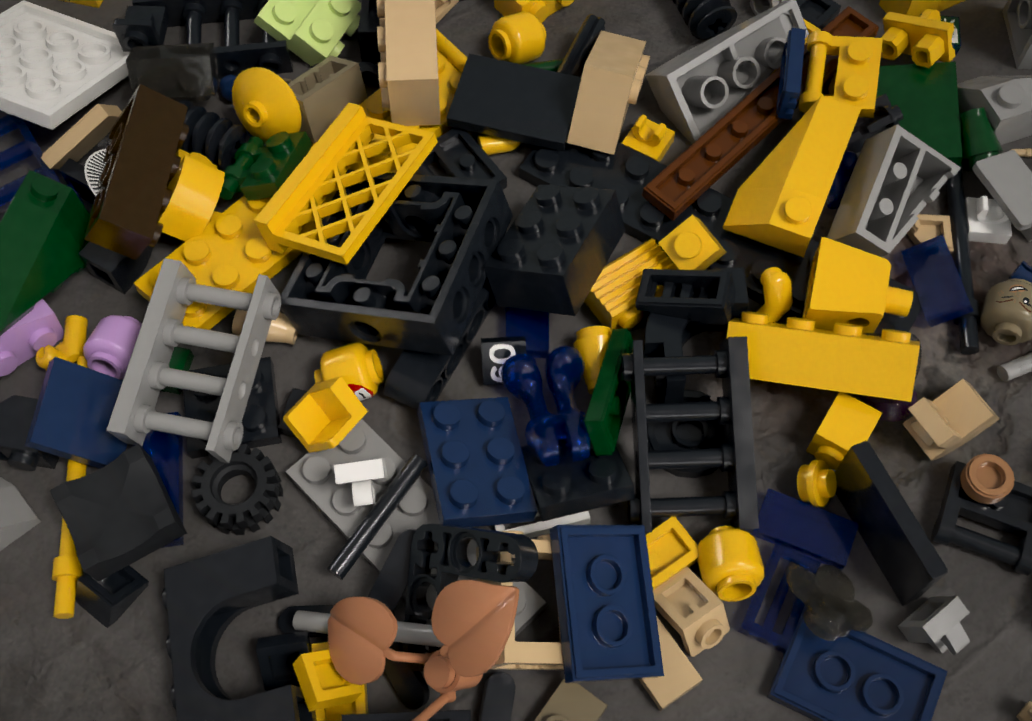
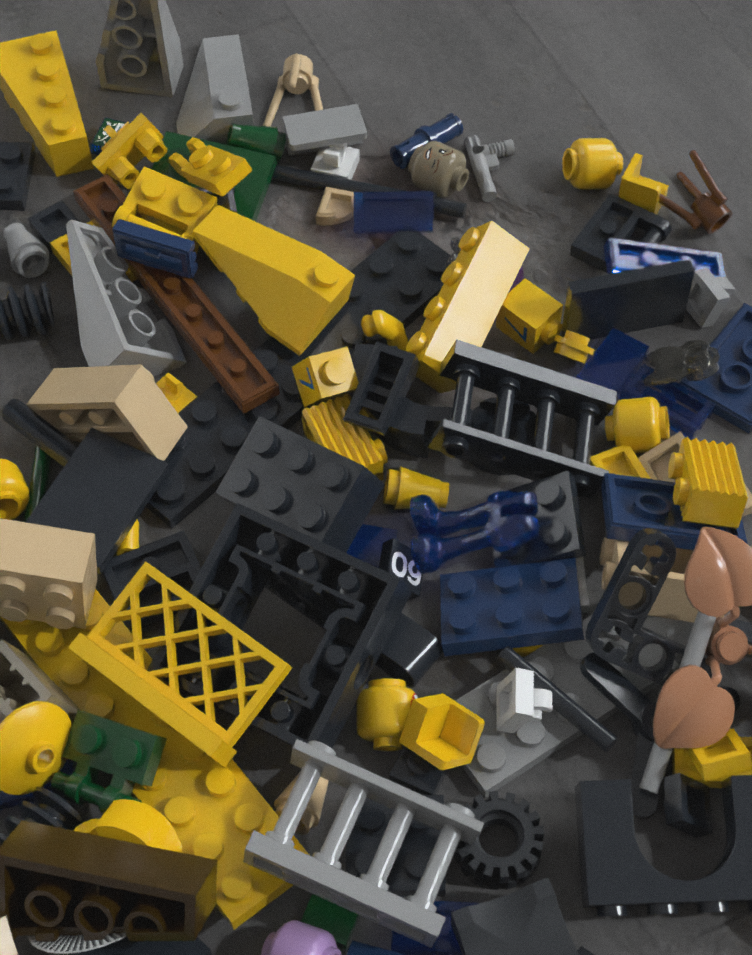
camera: 80 degrees left, 5 degrees down
(609, 396) = (464, 472): dark green tile -> none
(643, 628) = (708, 483): none -> yellow brick
(851, 288) = (400, 270): yellow torso -> none
(888, 190) = (298, 209): light grey wedge -> none
(909, 95) = (210, 167): none -> yellow hinge
(949, 420) = (536, 231): tan brick -> none
(961, 544) = (629, 255): none -> clear blue tile
(987, 478) = (593, 227): medium nougat tile -> none

